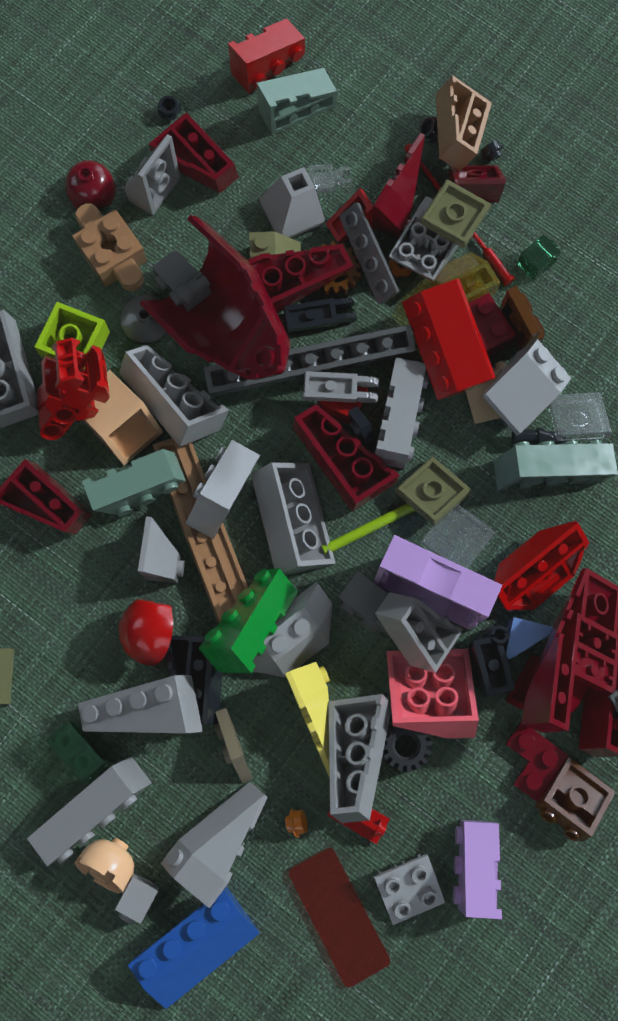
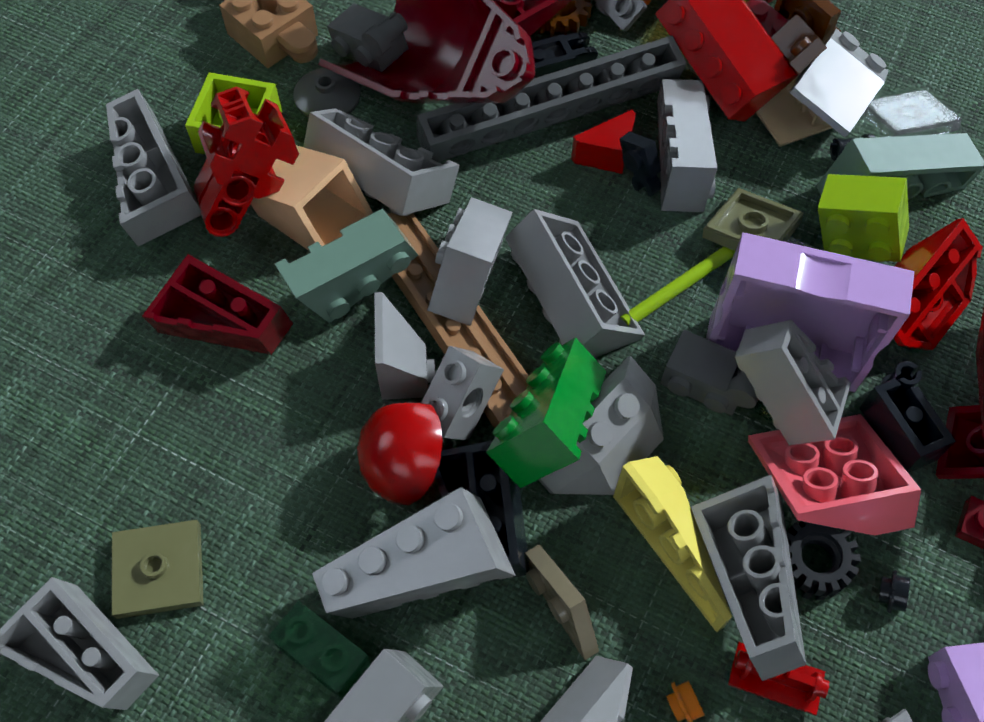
camera: 10 degrees left, 15 degrees down
(194, 593) = (461, 391): none -> light grey brick
(338, 387) = (601, 115): light grey hinge -> none
(343, 459) = (623, 202): dark red wedge -> none
(449, 777) = (895, 592): none -> black plate
(505, 352) = (798, 43): none -> slope
(508, 507) = (864, 216): none -> lime brick
(523, 635) = (941, 374): medium blue slope -> none

